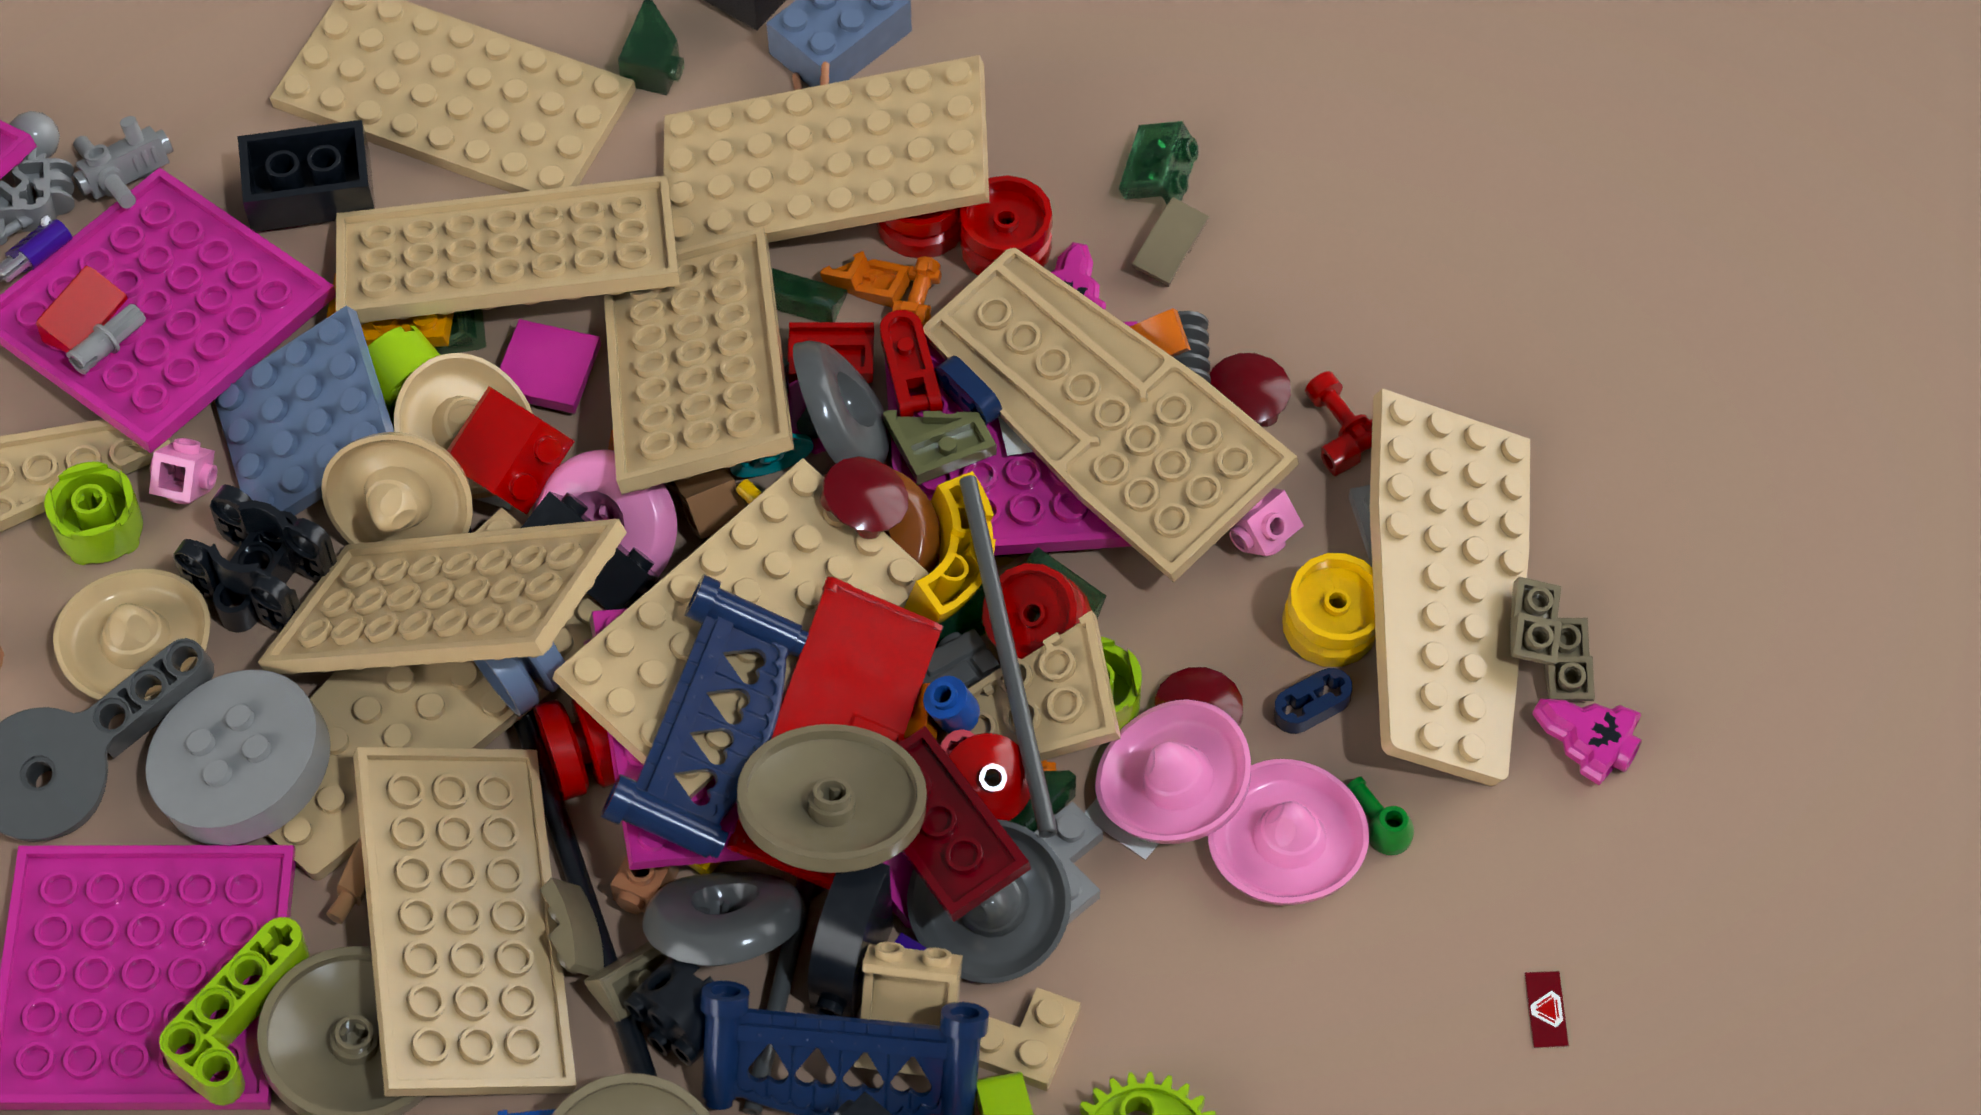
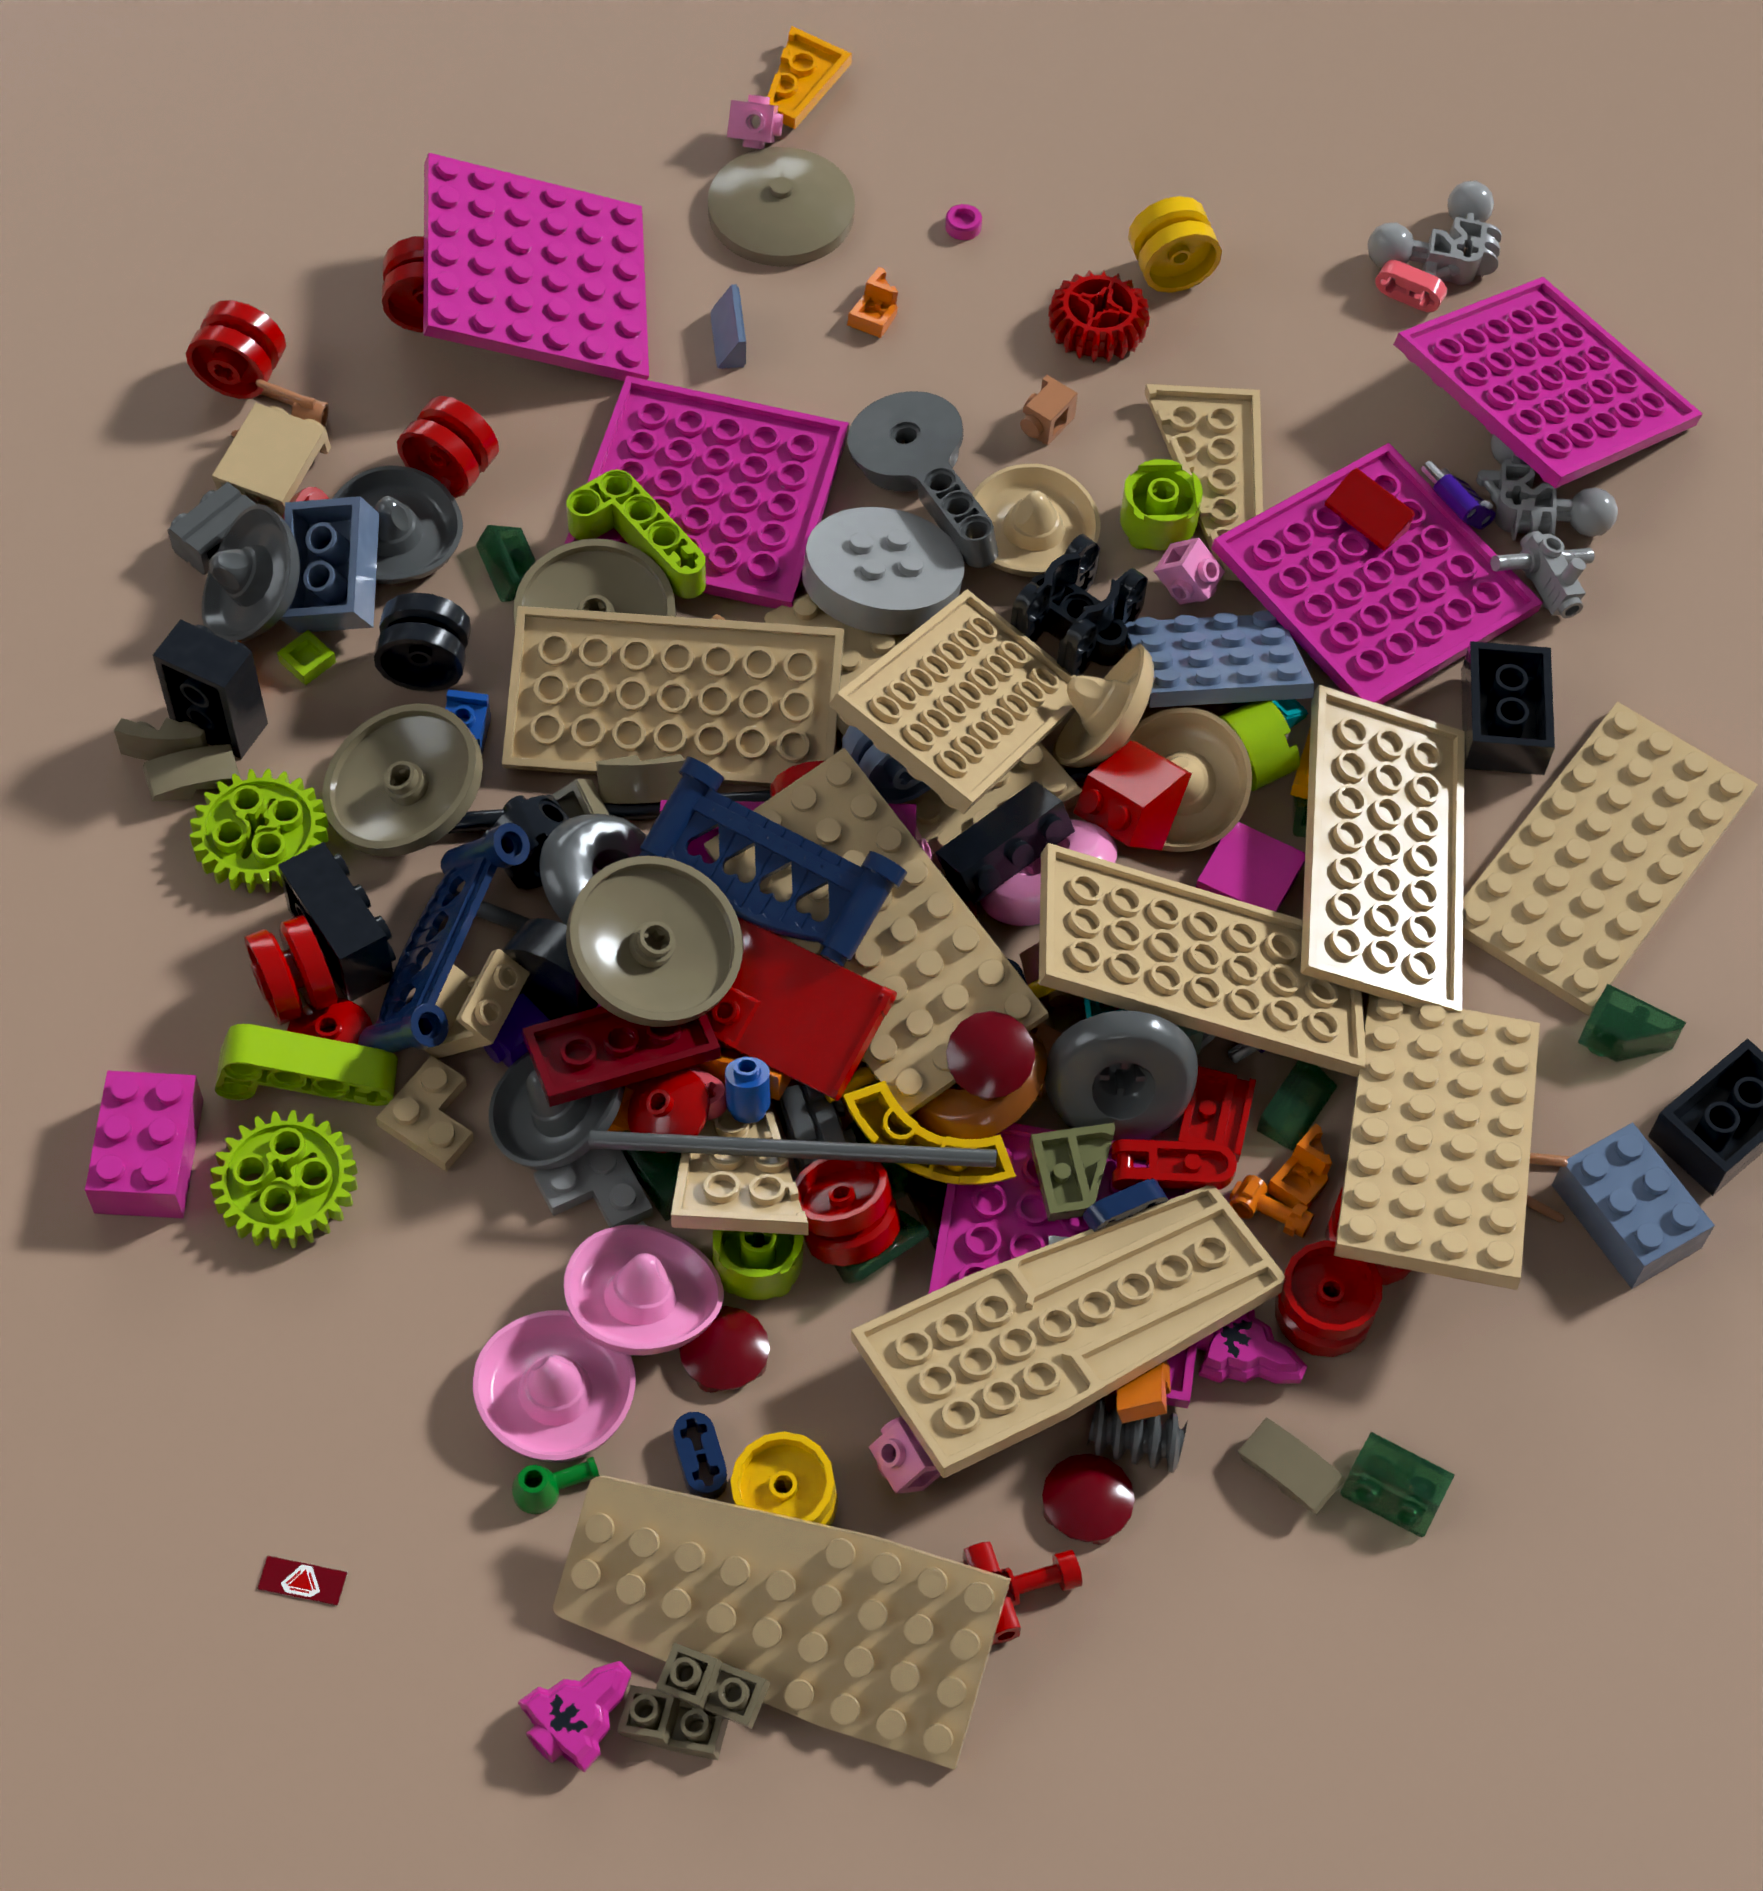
camera: 100 degrees right, 0 degrees up
(105, 339) = (1333, 521): light grey axle -> none

